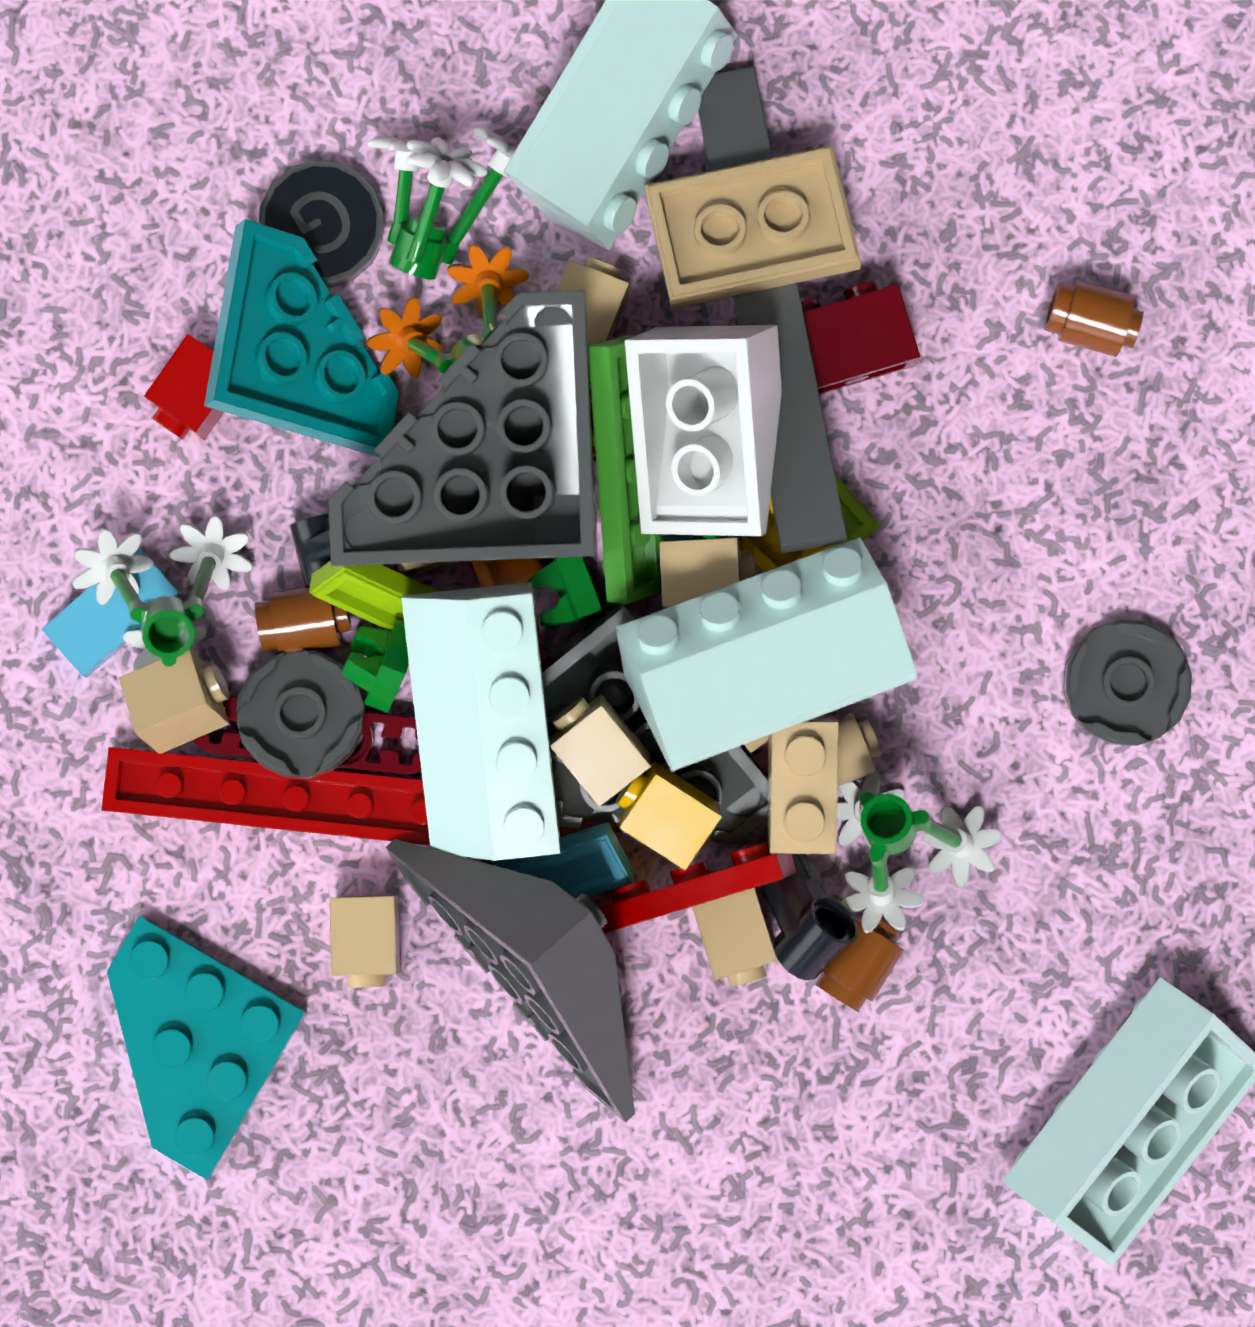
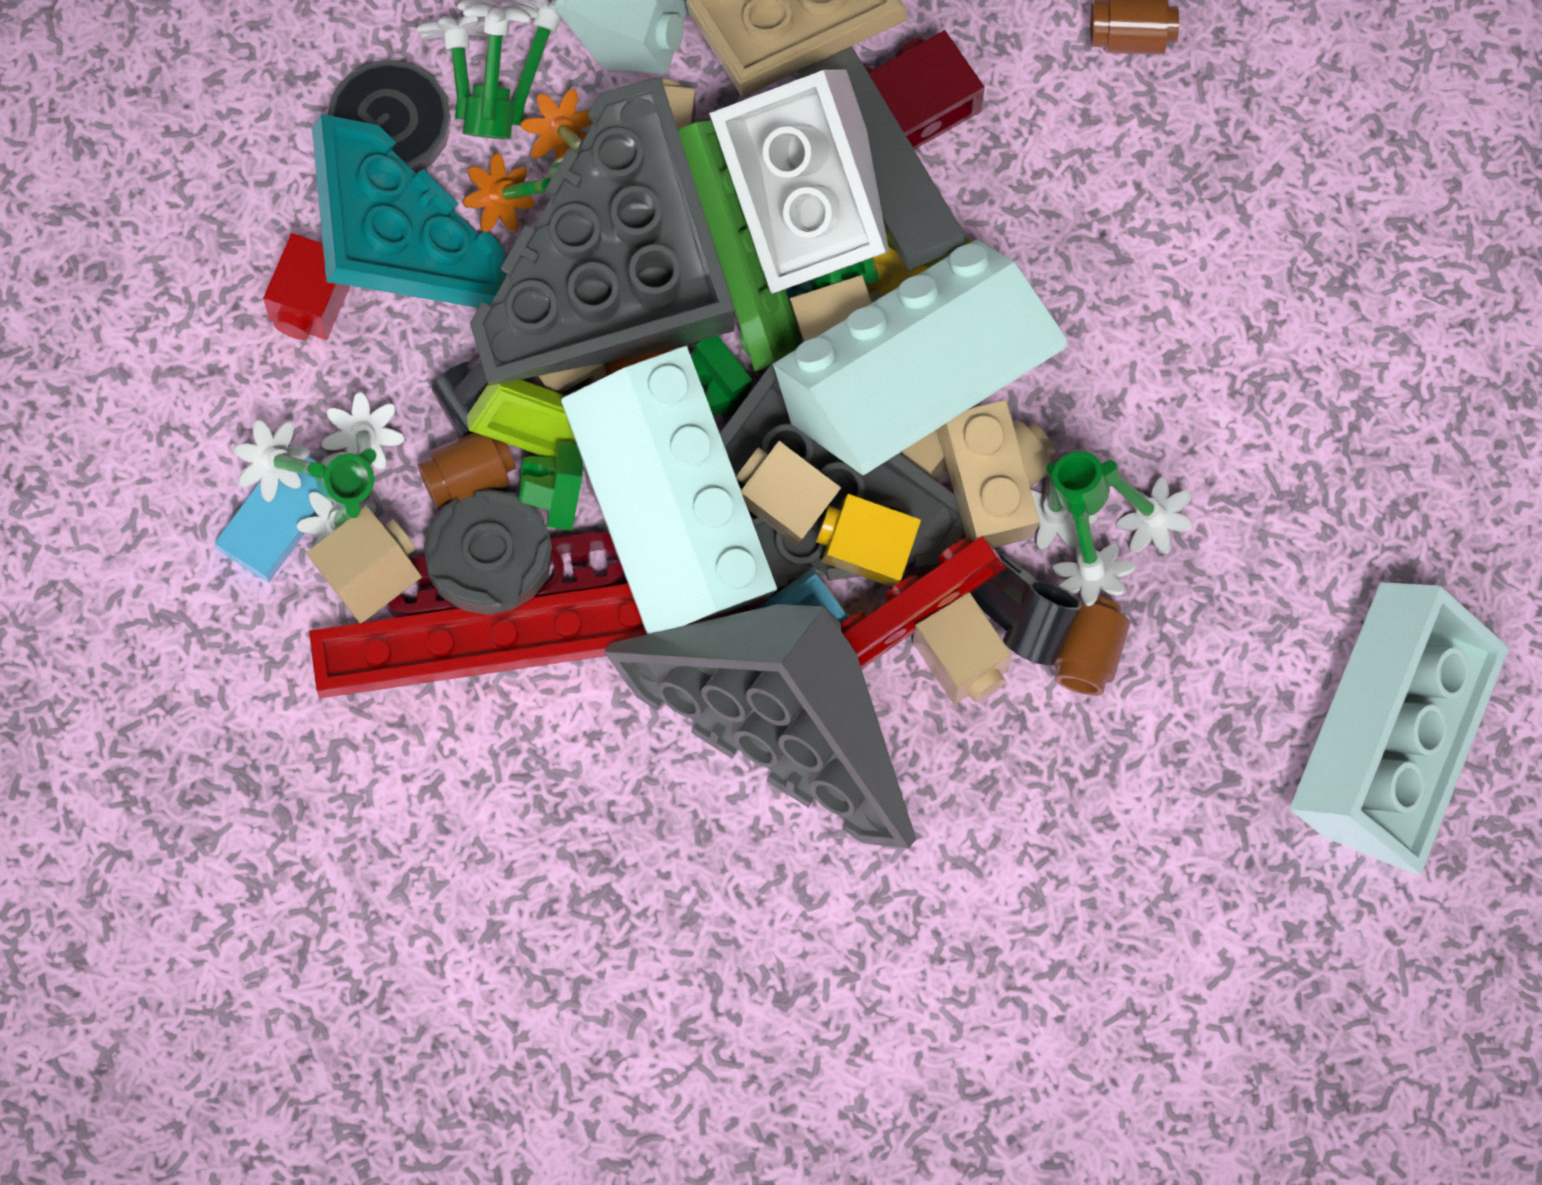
camera: 20 degrees left, 15 degrees down
(195, 1041) = (465, 892): teal plate -> none
(365, 939) = (606, 744): tan brick -> none
(1104, 692) = (1261, 357): dark grey tile -> none

